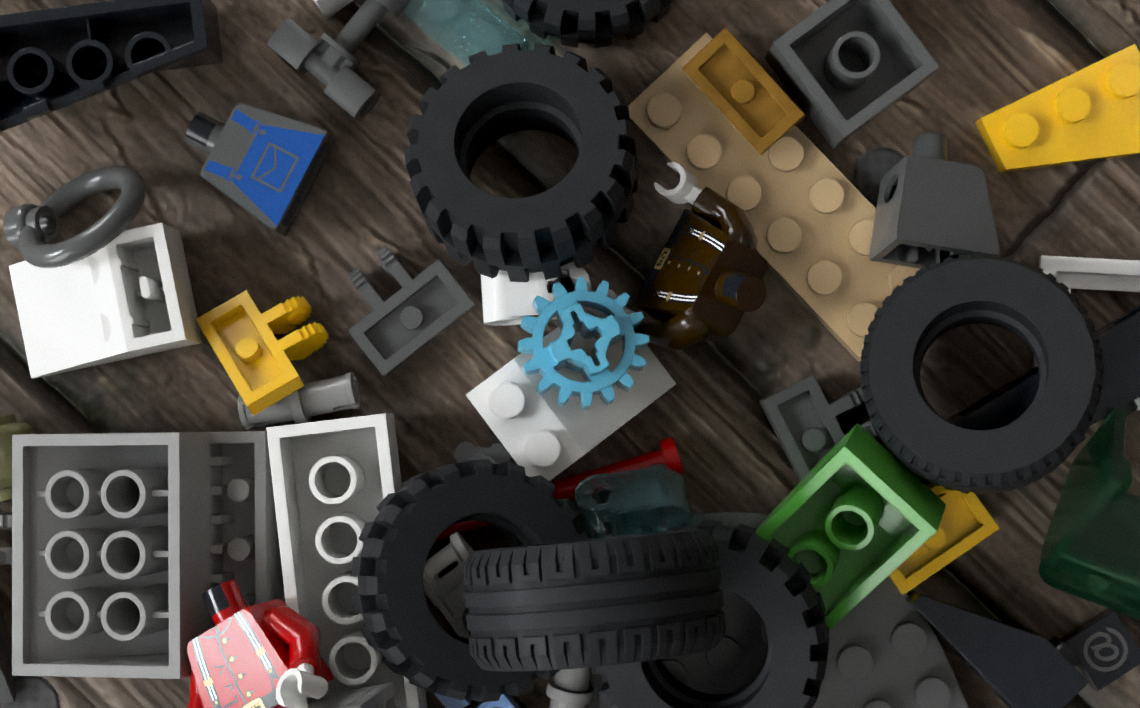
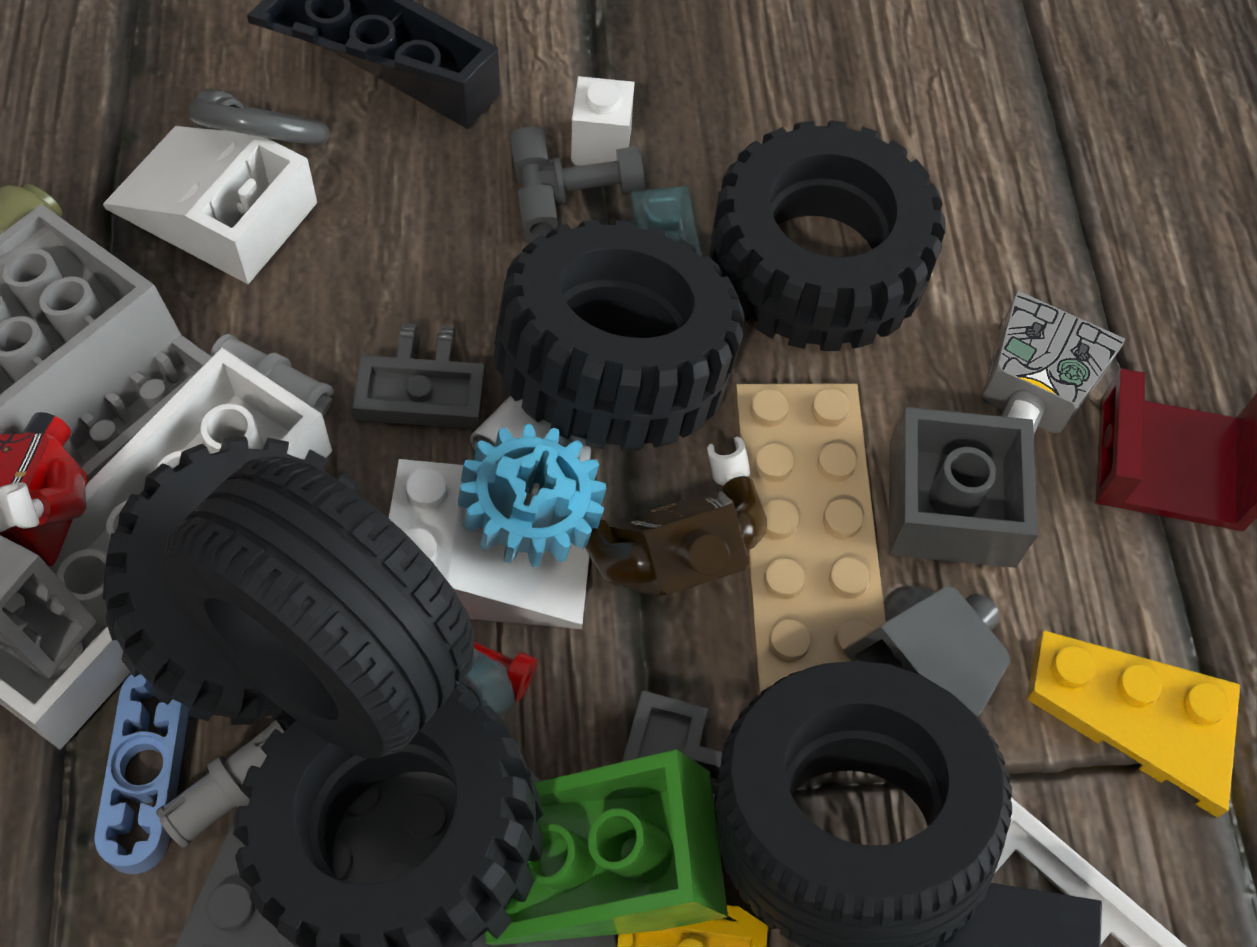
camera: 30 degrees right, 25 degrees down
(251, 352) = (285, 306): yellow hinge -> none
(261, 161) = (427, 202): torso -> none
(743, 91) = (849, 438): pearl gold panel -> none

